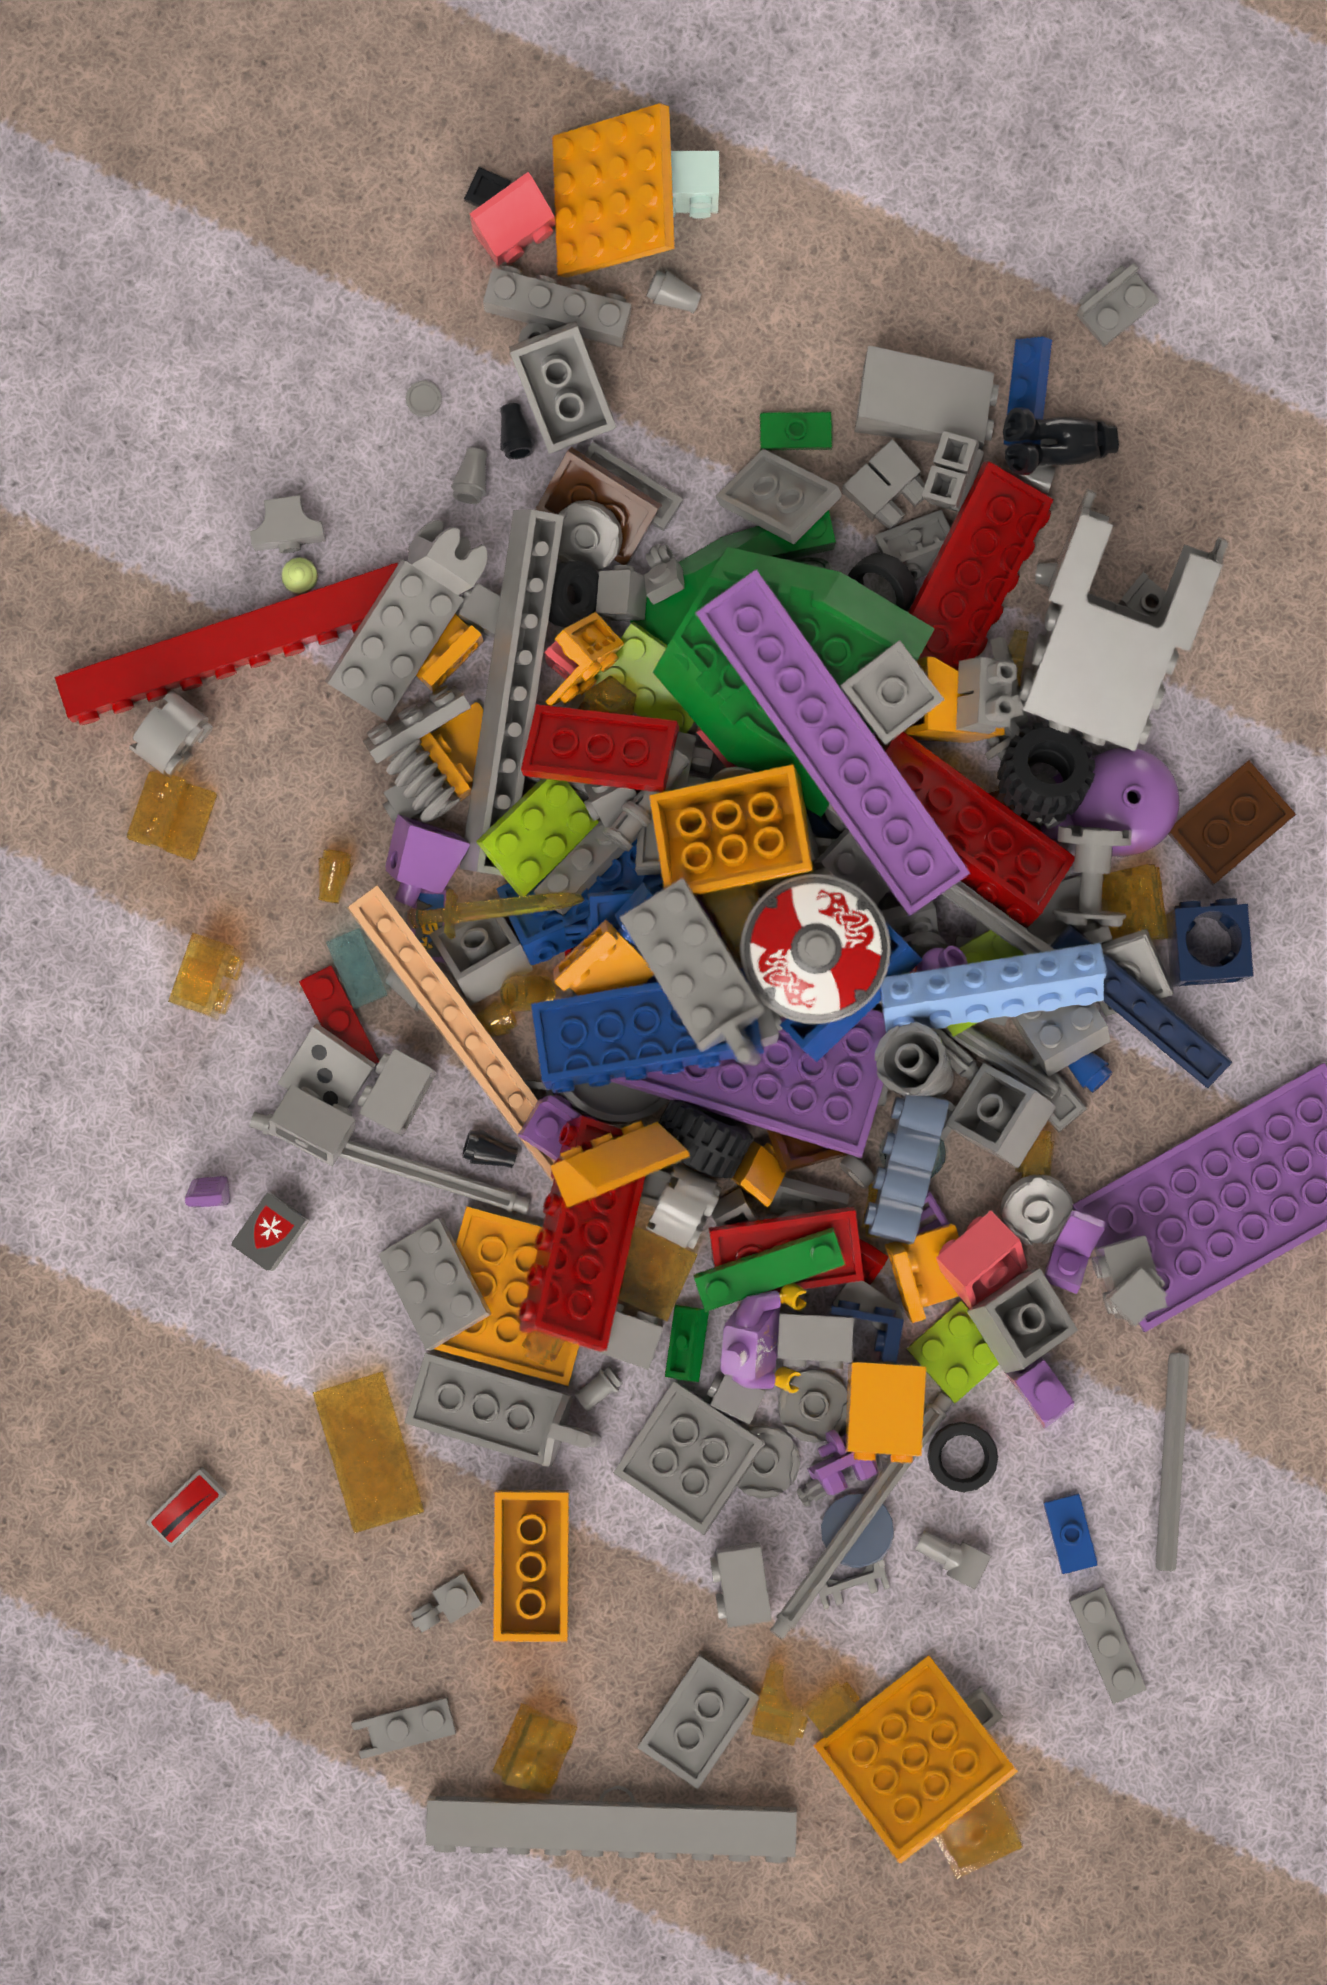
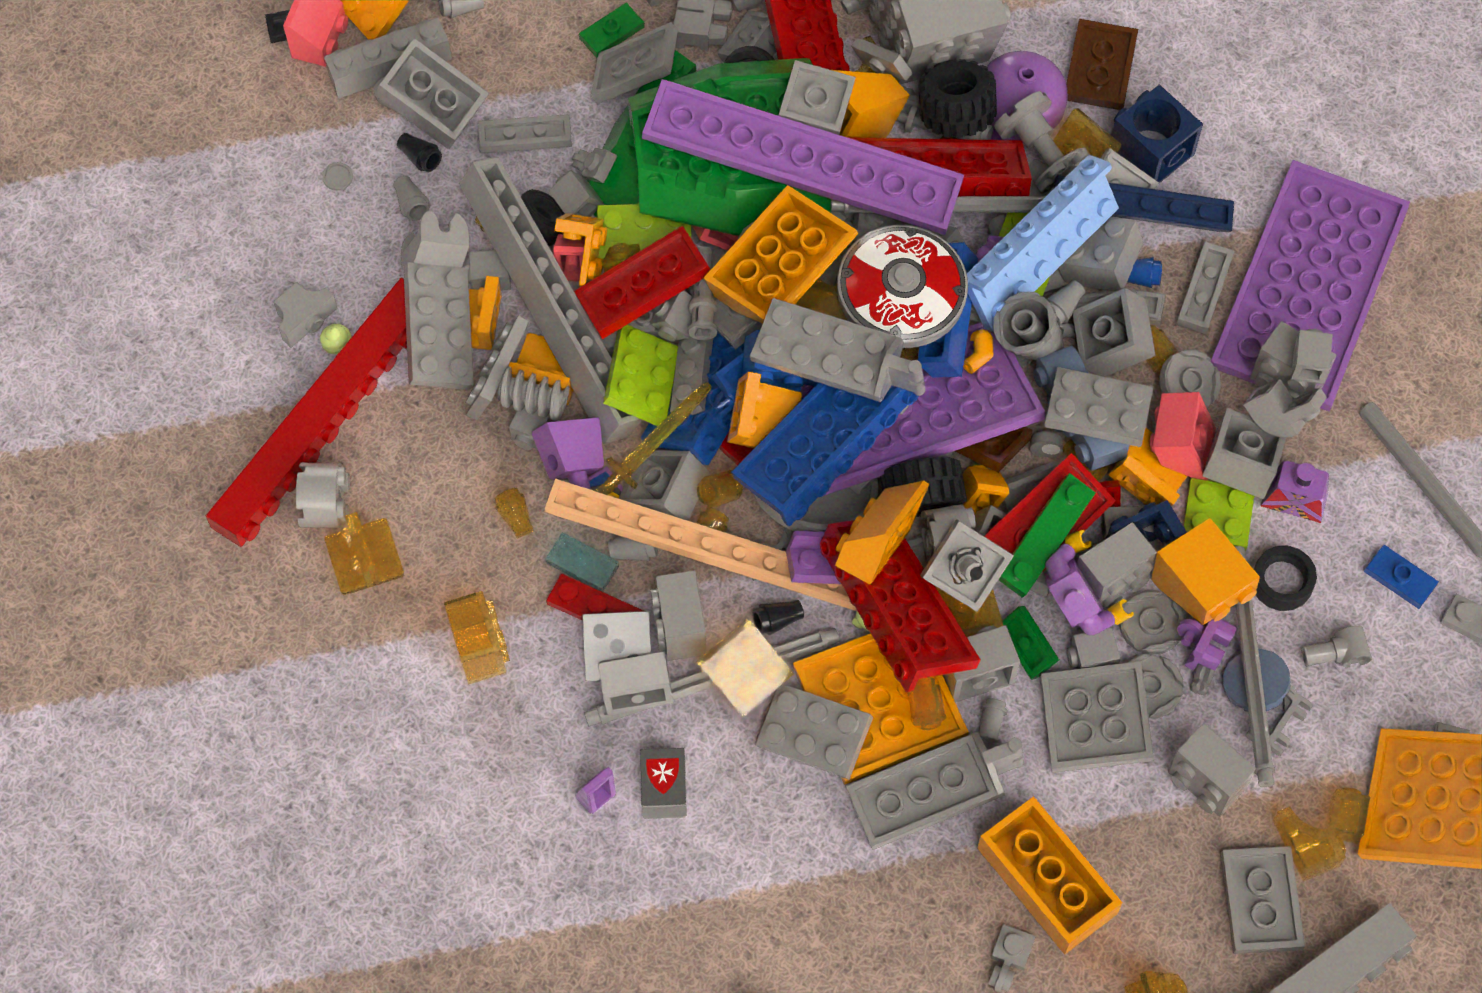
camera: 35 degrees left, 20 degrees down
(368, 1452) = (862, 889): clear yellow plate -> none
(415, 1184) = (744, 668): none -> clear yellow brick
(584, 479) = (526, 150): reddish brown plate -> none
(589, 534) = (527, 170): light grey tile -> none
(665, 1259) = (977, 572): none -> light grey plate
(859, 1048) = (982, 350): none -> light orange arm
(915, 1186) = (1099, 407): none -> light grey plate
(978, 1051) = (1066, 300): none -> light grey cone
(987, 694) = (878, 66): light grey hips -> none
(1072, 1250) = (1234, 377): medium lavender bracket -> none
(1080, 1312) = (1278, 412): none -> light grey brick
(1132, 1127) = (1205, 287): none -> light grey plate

